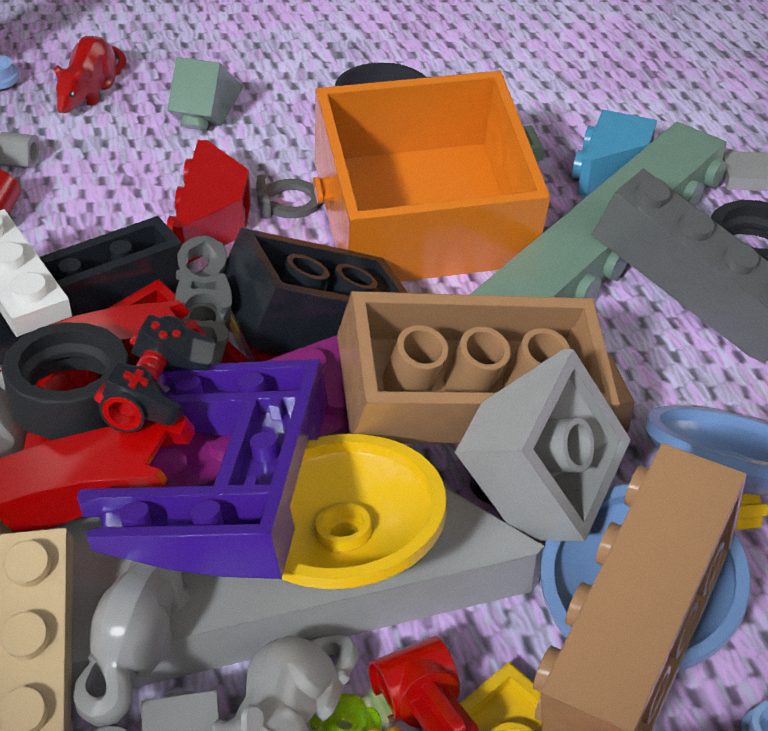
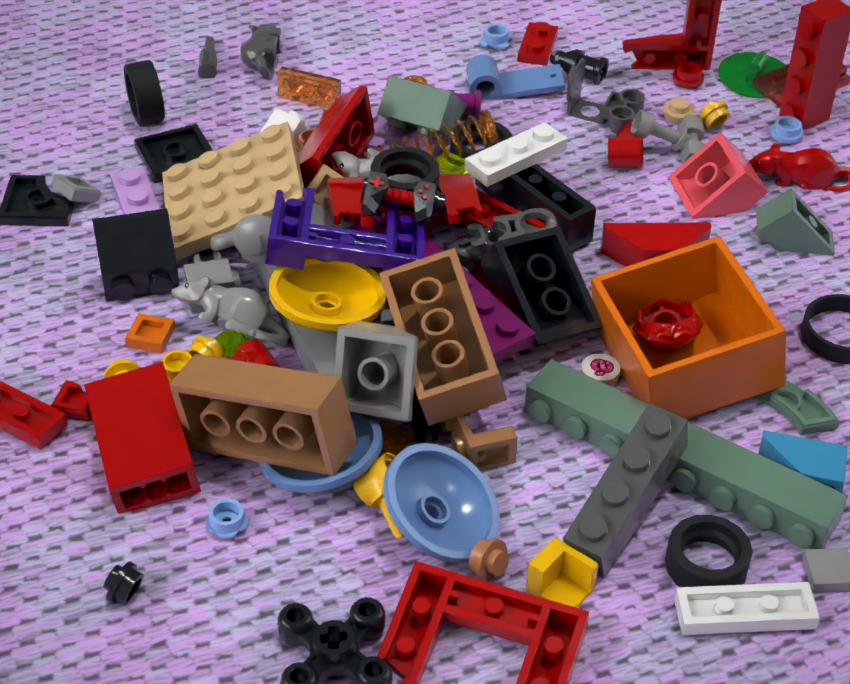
camera: 85 degrees right, 0 degrees up
(88, 133) = (717, 180): none -> coral slope
(404, 183) = (667, 324): none -> red hair
(438, 281) = (602, 368): none -> white tile

